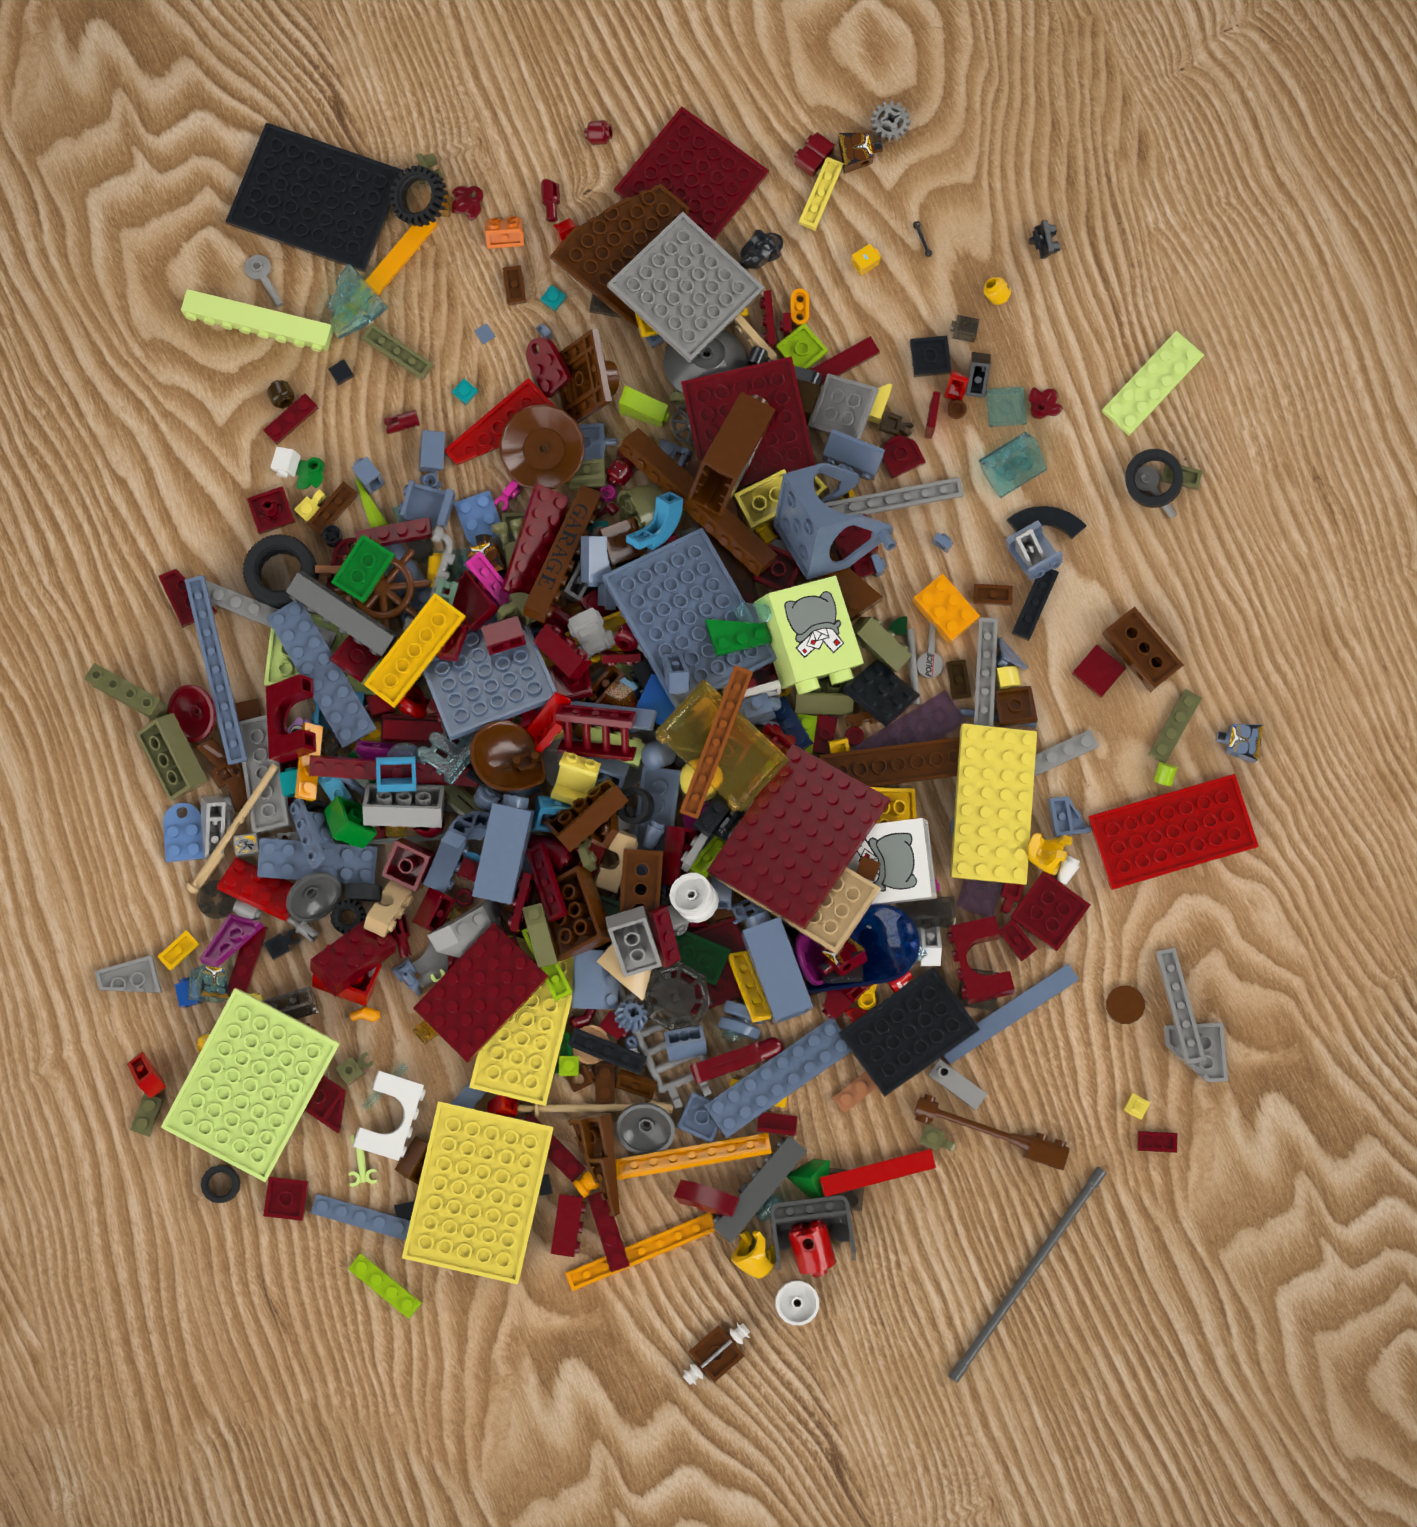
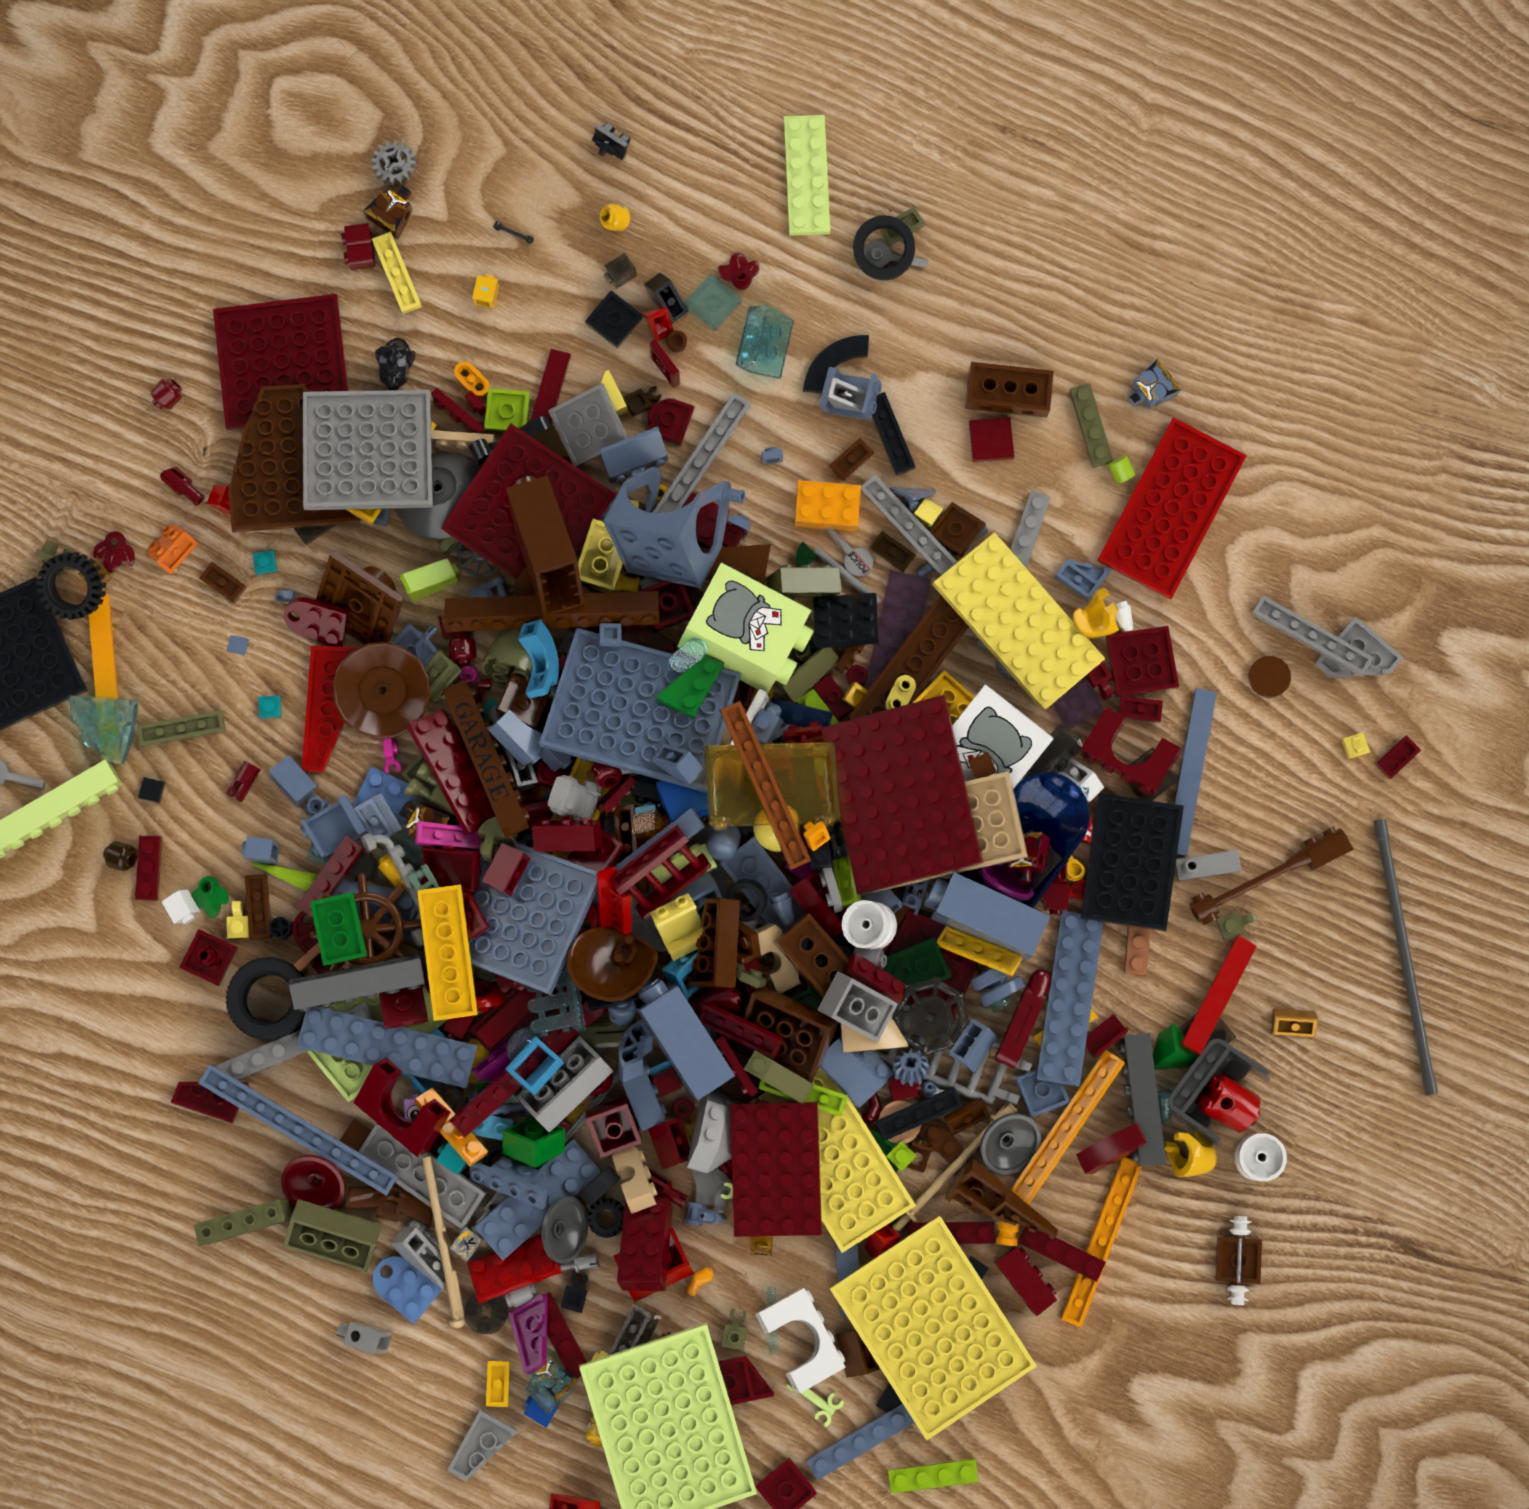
camera: 50 degrees left, 0 degrees up
(128, 839) = (365, 1337): none -> light grey torso
(460, 525) = (378, 816): none -> sand blue plate
(717, 806) = (815, 835): none -> light orange tile
(718, 552) = (610, 634): none -> sand blue plate
(867, 774) = (900, 694): none -> light yellow plate
(909, 1242) = (1294, 1023): none -> pearl gold slope

